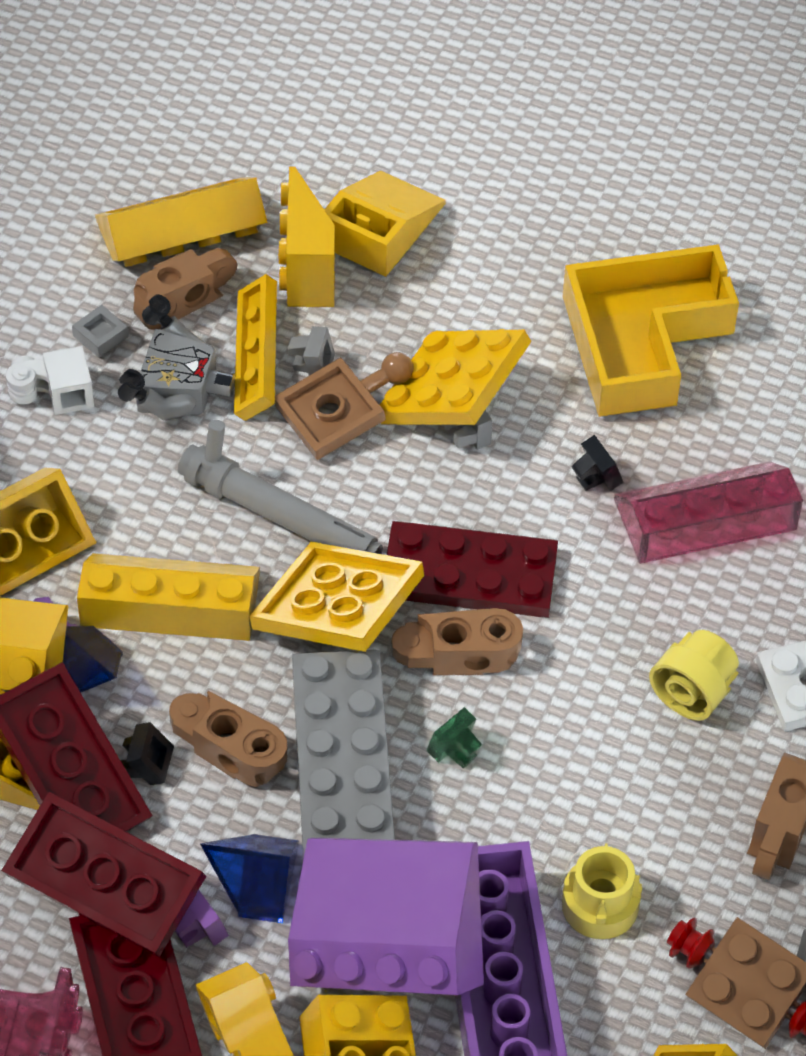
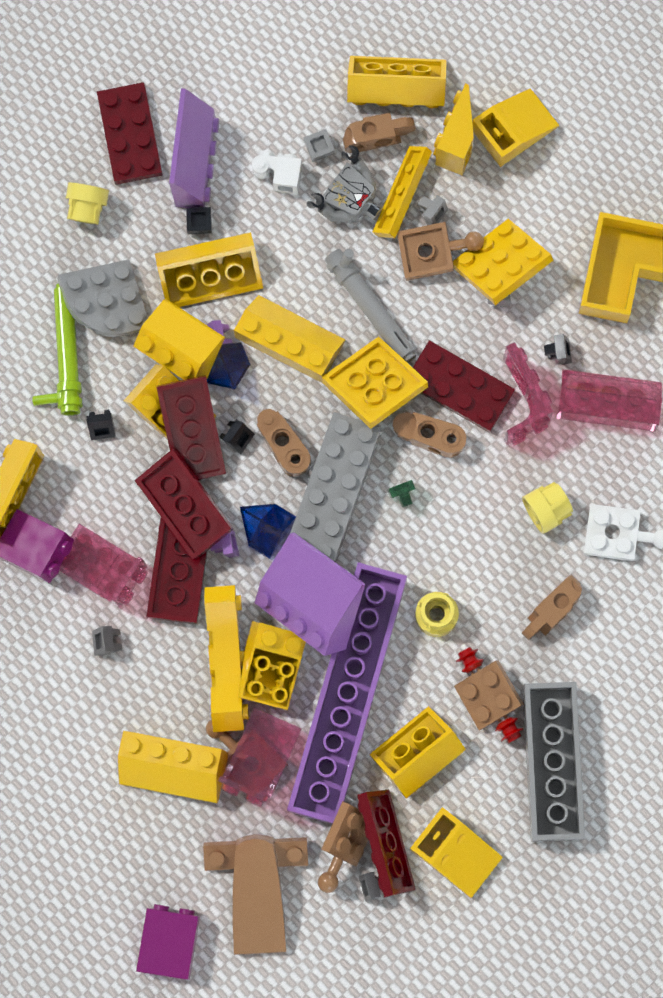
camera: 30 degrees right, 25 degrees up
(586, 526) = (538, 401): none -> clear pink bracket

